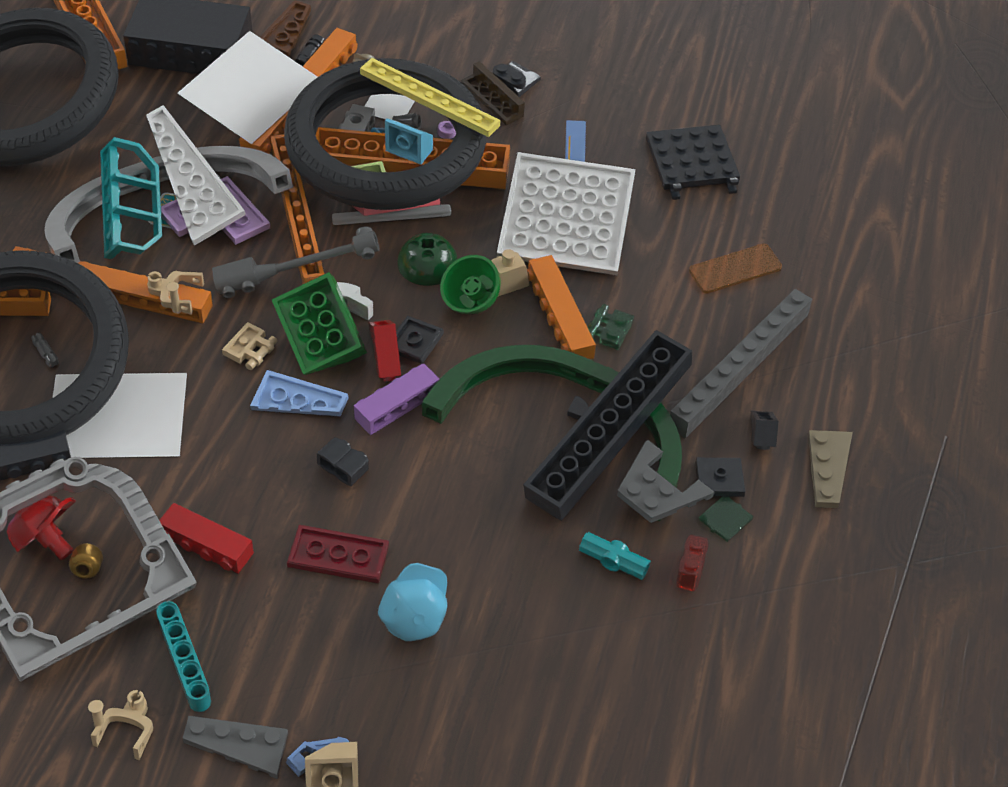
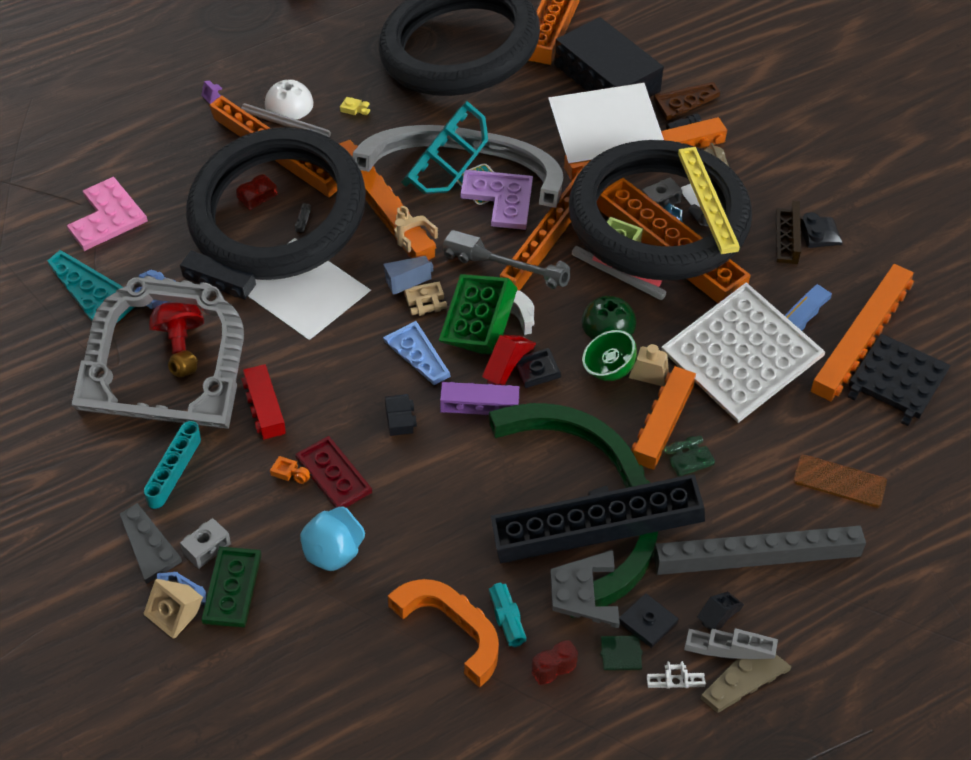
camera: 45 degrees right, 0 degrees up
(132, 713) = (111, 476): tan piece -> none
(198, 189) = (498, 172): white wing -> none
(210, 334) = (407, 273): none -> sand blue slope
(294, 581) = (285, 468): none -> orange plate
(297, 712) = (199, 552): none -> light grey brick
(363, 716) = (231, 587): none -> dark green plate
(407, 141) = (655, 219): medium azure slope -> none
(585, 583) = (458, 608): none -> orange arch
(634, 140) = (862, 333): none -> orange brick
(788, 496) = (668, 678): none -> white piece
(802, 446) = (728, 645): none -> light grey slope

